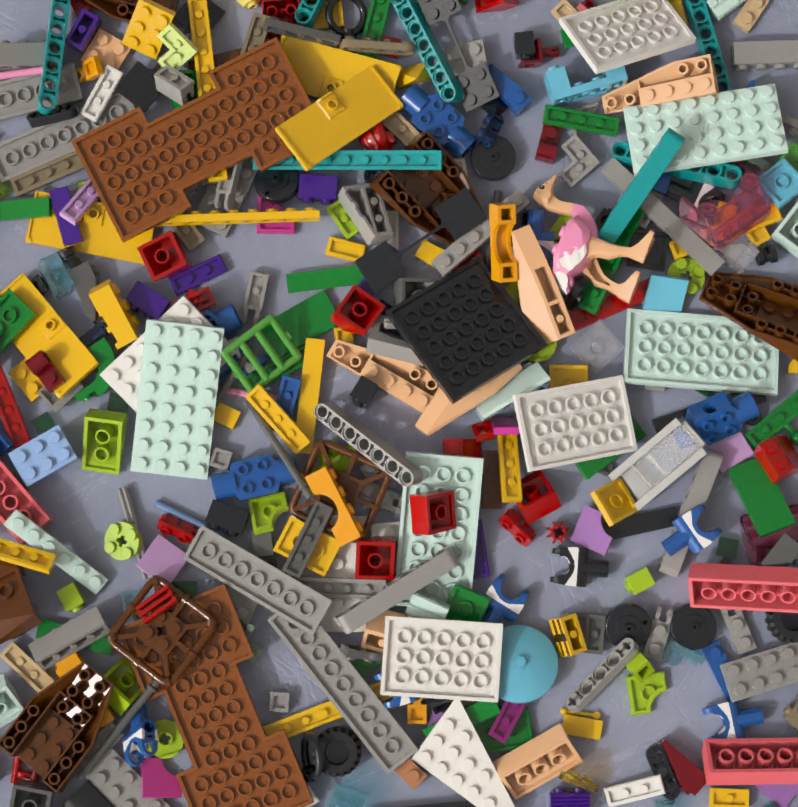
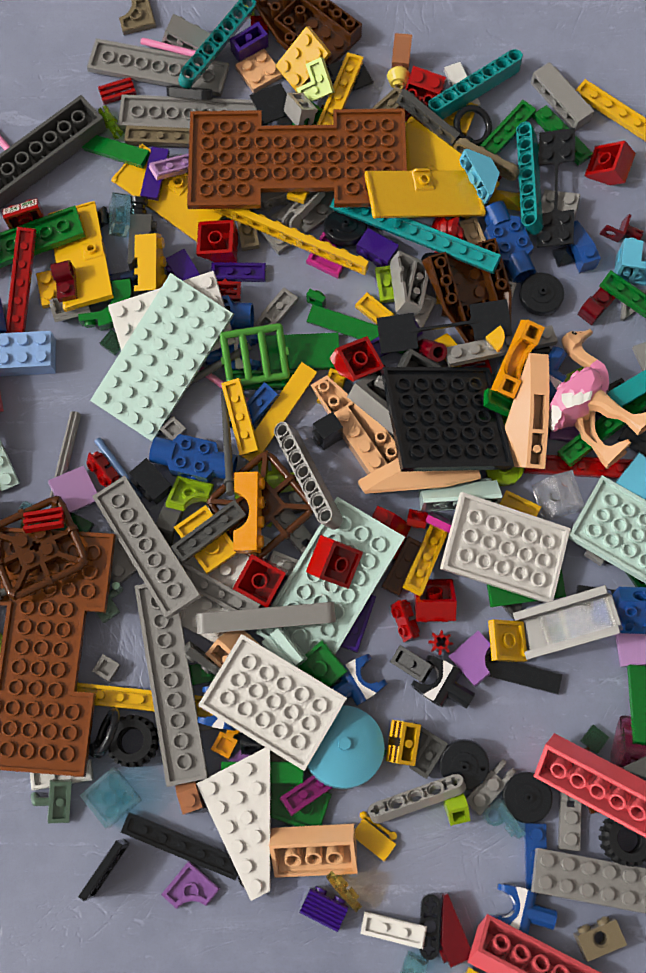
camera: 30 degrees right, 10 degrees down
(43, 423) = (41, 325): clear green tile -> none
(91, 69) = (239, 73): light orange plate -> none
(102, 93) = (237, 94): white tile -> none
(104, 440) = (82, 365): lime slope -> none
(131, 535) = (43, 450): lime plate -> none
(226, 415) = (197, 396): yellow tile -> none
(286, 266) = (316, 298): none -> green plate
(382, 69) = (481, 173): none -> medium azure slope
(419, 267) = (432, 350): none -> dark red brick
(475, 231) = (496, 338): none -> yellow tile
(485, 134) = (552, 267): dark blue hinge -> none
(503, 291) = (497, 402): none -> green tile
(524, 45) = (614, 215): black brick -> none
(542, 563) = (411, 664): none -> plate
(577, 293) = (562, 438): black plate -> none
(582, 160) = (620, 331): light grey plate -> none
(638, 581) = (495, 727): lime brick -> none
(643, 694) = (449, 838): lime tile -> none
(689, 533) = (565, 704): blue connector -> none
(697, 494) = (575, 687): light grey beam -> none

